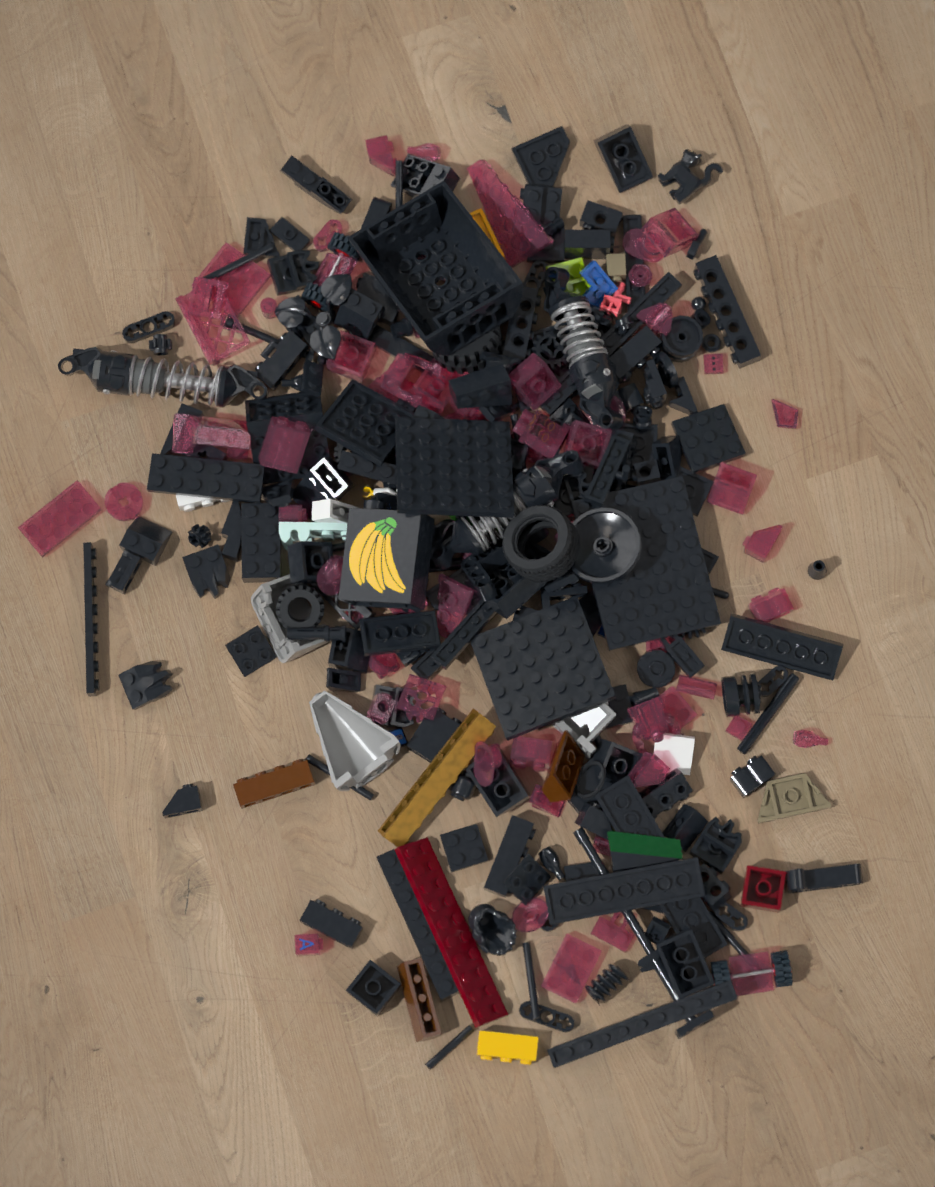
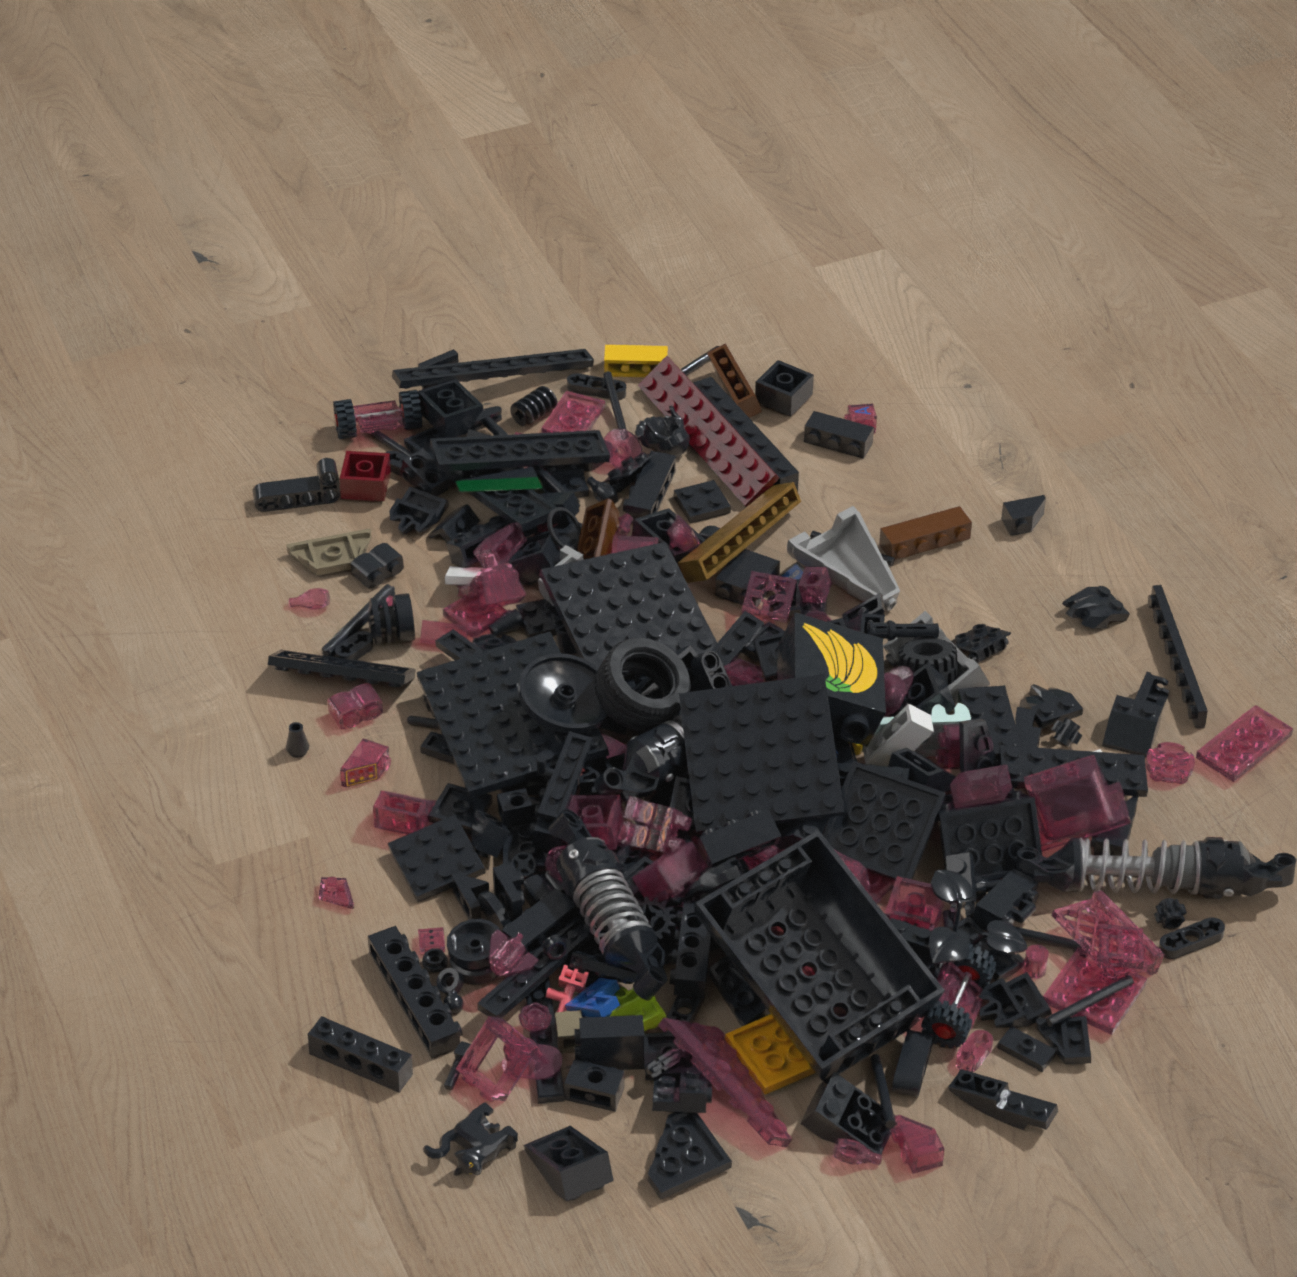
camera: 170 degrees right, 35 degrees down
(766, 255) = (360, 1054): none -> black brick

